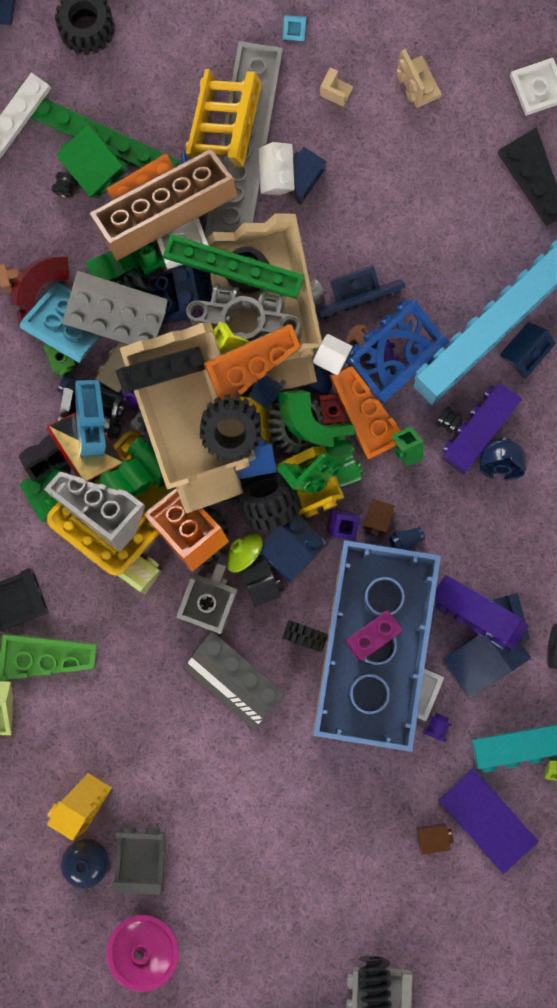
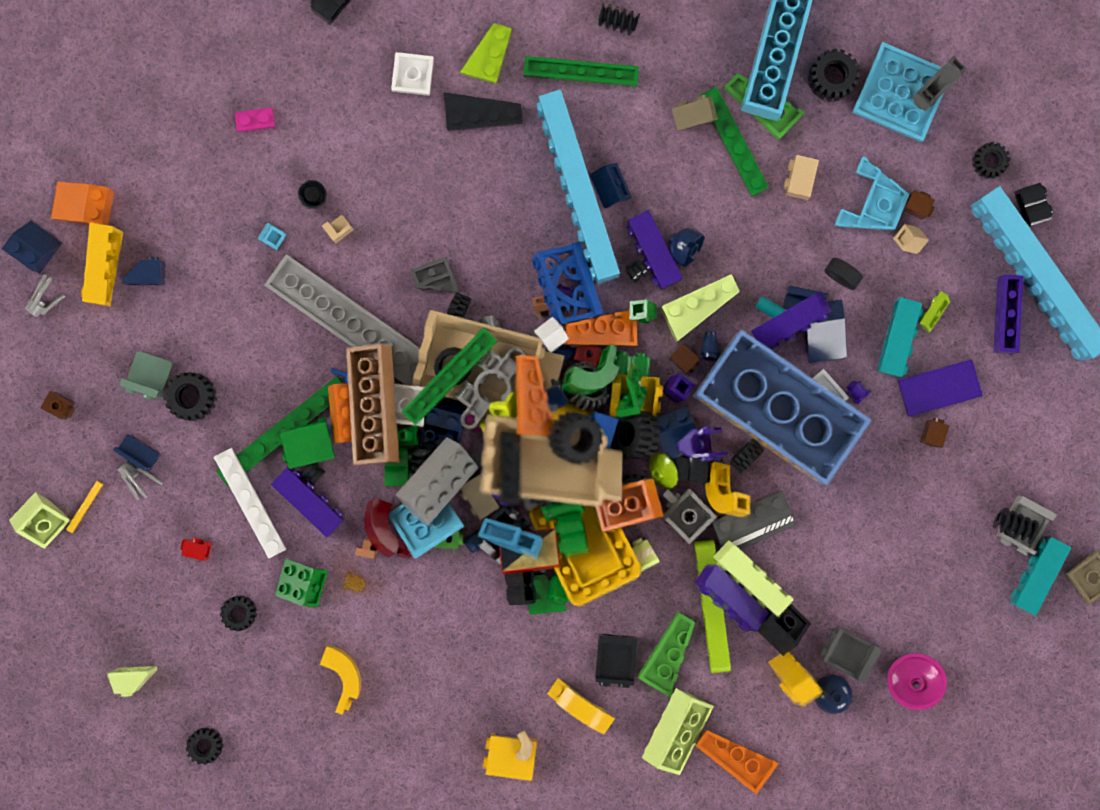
camera: 70 degrees left, 5 degrees up
(31, 193) = (308, 502): none -> dark purple brick
(106, 511) = (589, 559): light grey wedge -> none
(120, 679) = (713, 615): none -> lime beam
(134, 770) = (785, 630): none -> black slope
(137, 694) = (731, 598): none -> dark purple brick
(171, 707) = (752, 578): none -> yellowish green wedge
(241, 127) = (338, 319): yellow fence -> none
(248, 626) = (720, 494): none -> yellow arch
(276, 168) = (382, 305): white brick -> none
(284, 563) = (689, 444): none -> dark purple piece
(307, 171) = (393, 284): dark blue slope -> none
(316, 248) = (459, 305): none -> black tyre
(335, 211) = (435, 276): none -> dark grey wing
(355, 289) = (504, 290): dark blue bracket -> none
(358, 44) = (312, 194): none -> black hair
(373, 635) = (779, 408): magenta panel -> none
(417, 79) = (362, 163): tan bracket -> none
(441, 502) = (692, 309): none -> yellowish green wedge
(481, 581) = (769, 307): none -> teal cylinder

